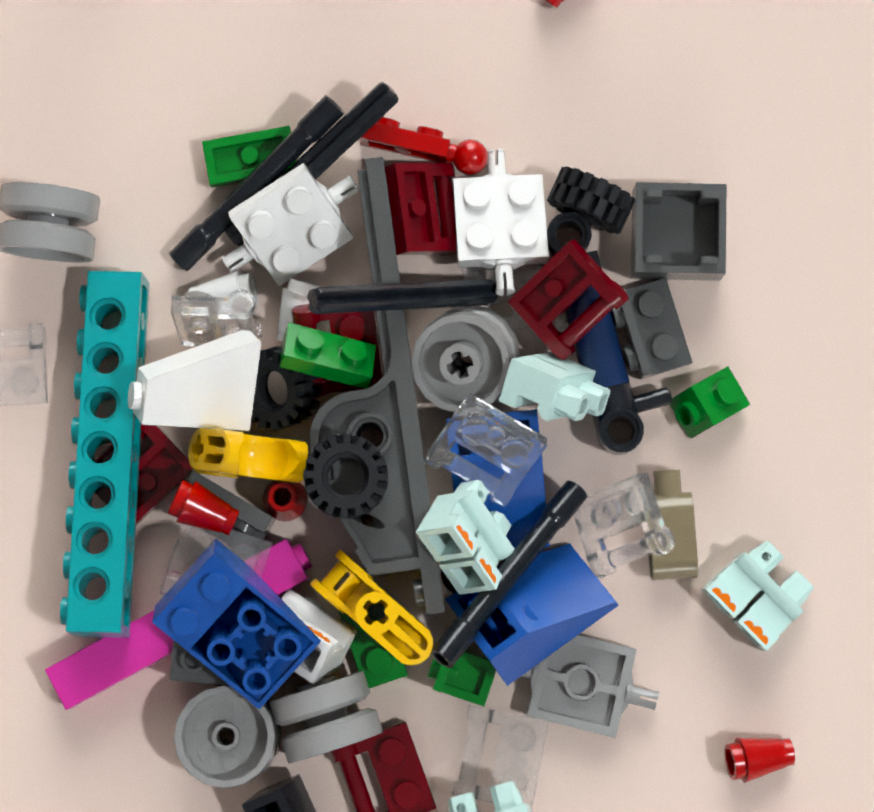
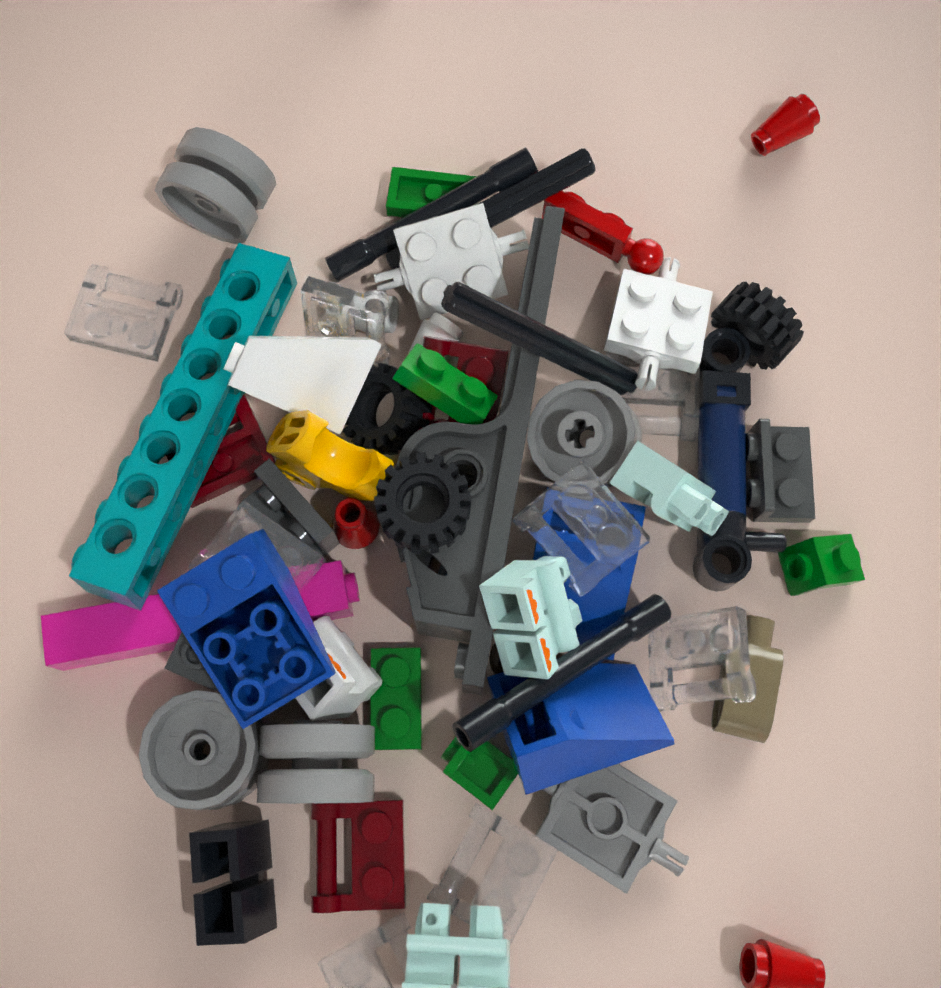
camera: 15 degrees right, 10 degrees down
(203, 509) = (261, 495): red cone -> none
(397, 632) = (390, 636): yellow piece -> none
(415, 208) = (585, 285): dark red plate -> none
(557, 288) = (701, 394): dark red plate -> none
(678, 231) = (837, 385): dark grey container -> none
(772, 608) = (823, 787): light aqua hips -> none

